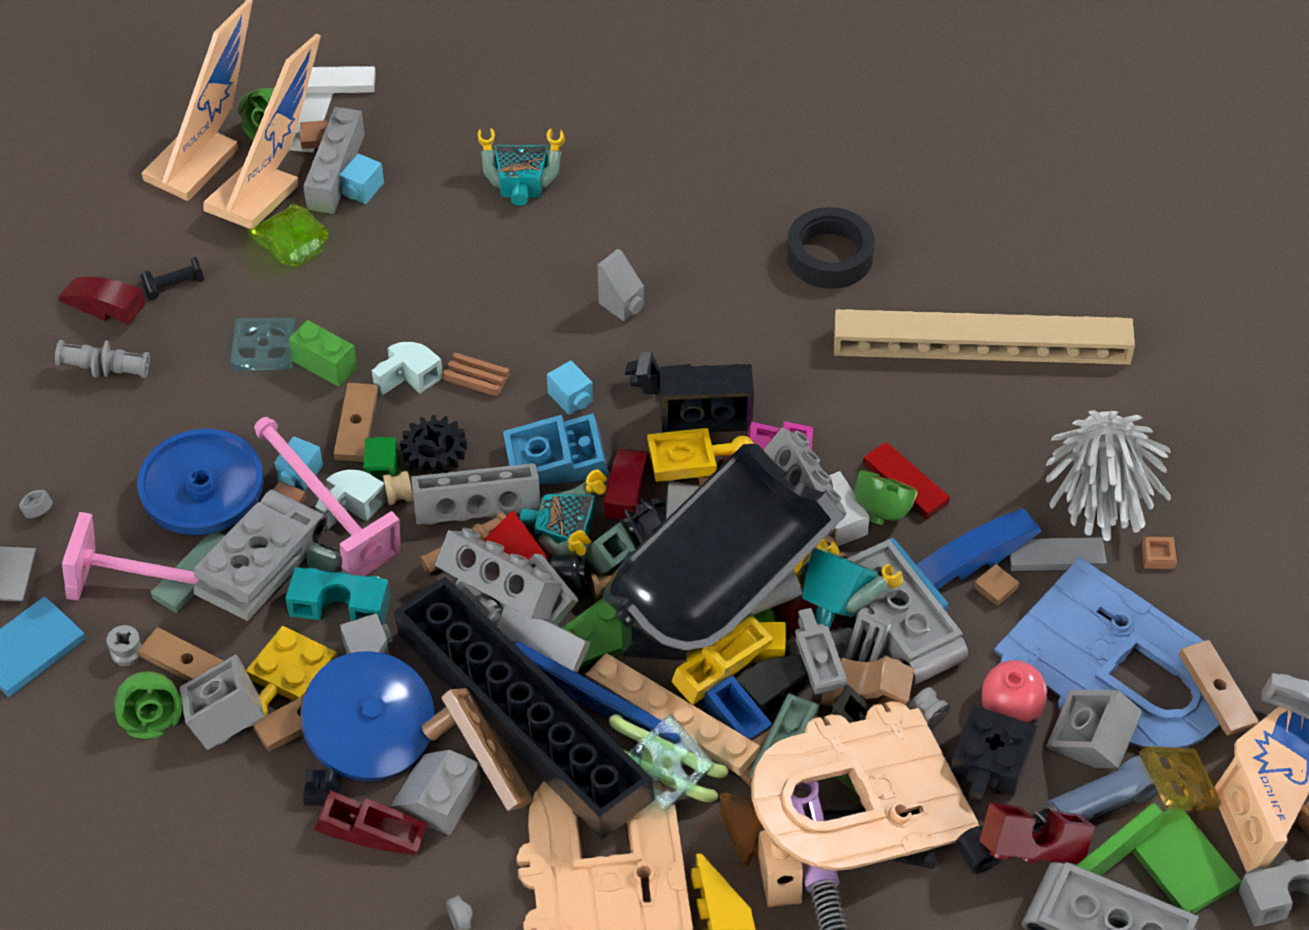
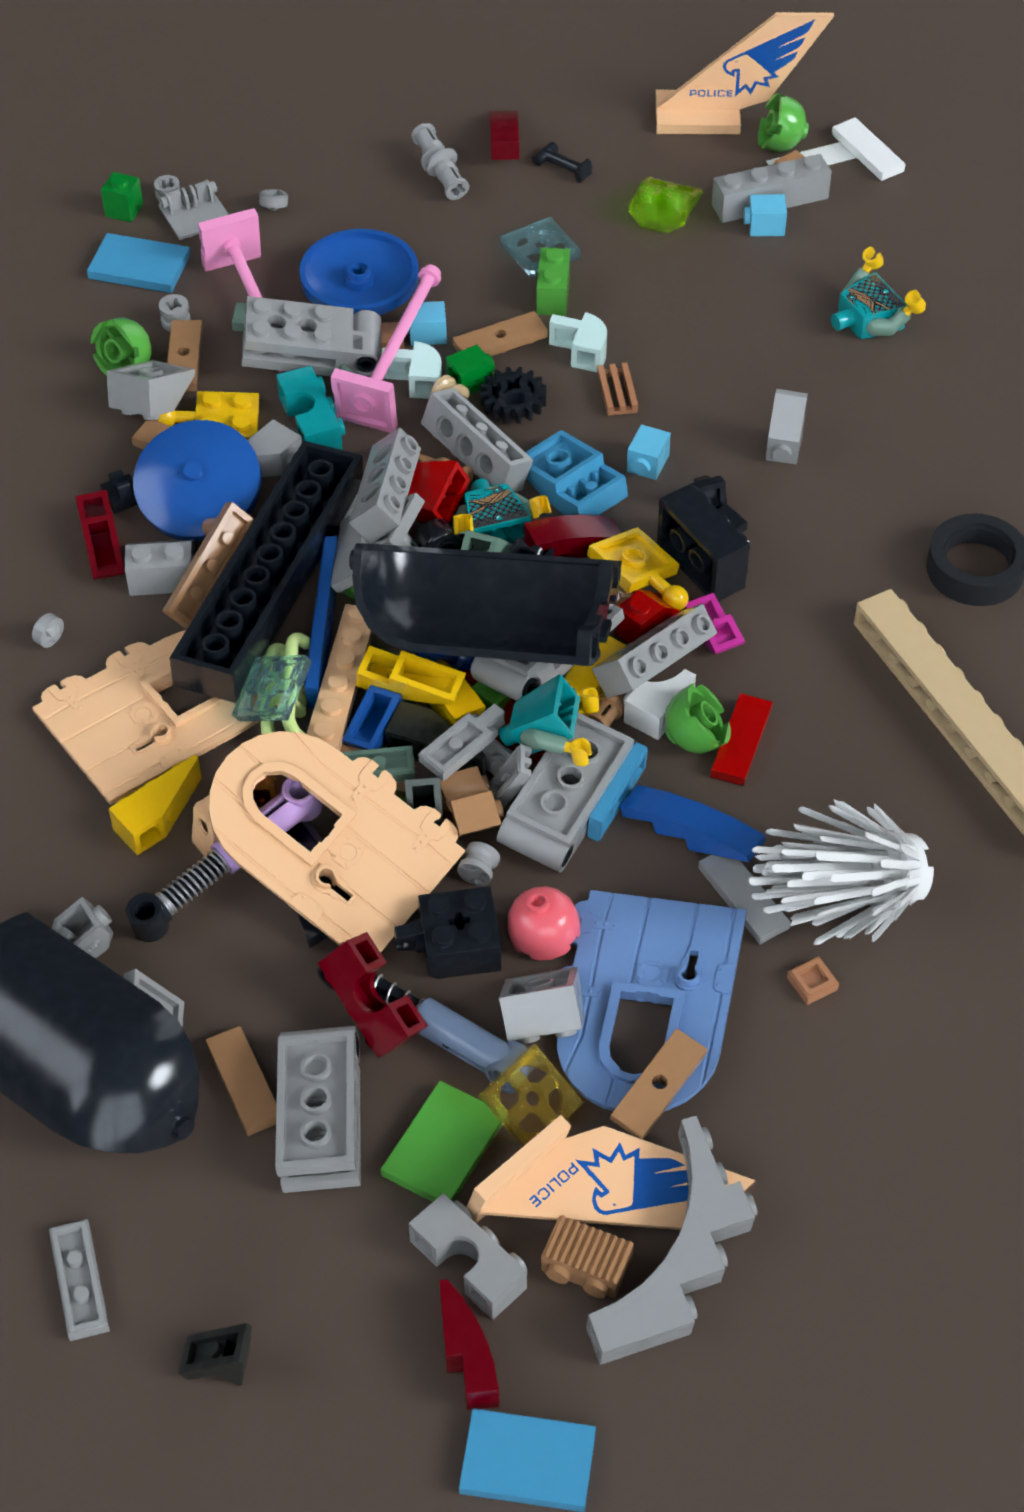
camera: 60 degrees right, 0 degrees up
(258, 184) = (738, 130): light nougat piece -> none
(996, 585) = (668, 861): medium nougat tile -> none
(1124, 841) = (414, 1075): bright green tile -> none

